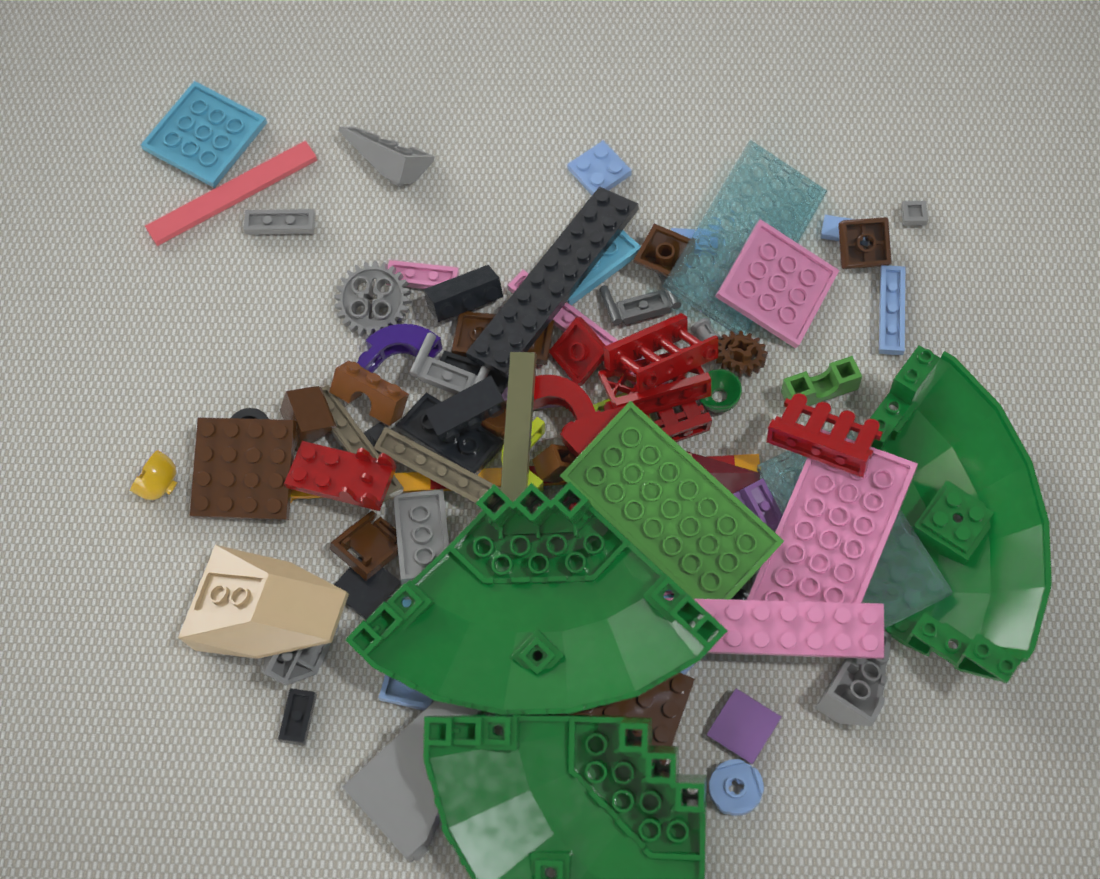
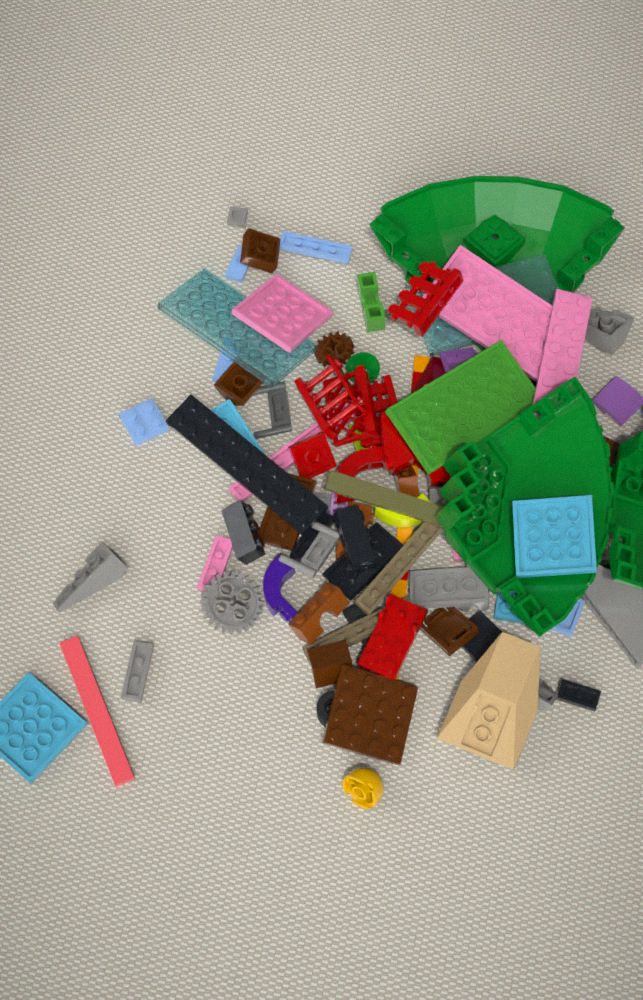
camera: 85 degrees left, 0 degrees up
(489, 640) = (554, 536): none -> medium azure plate
(703, 329) = (310, 370): light grey bush -> none

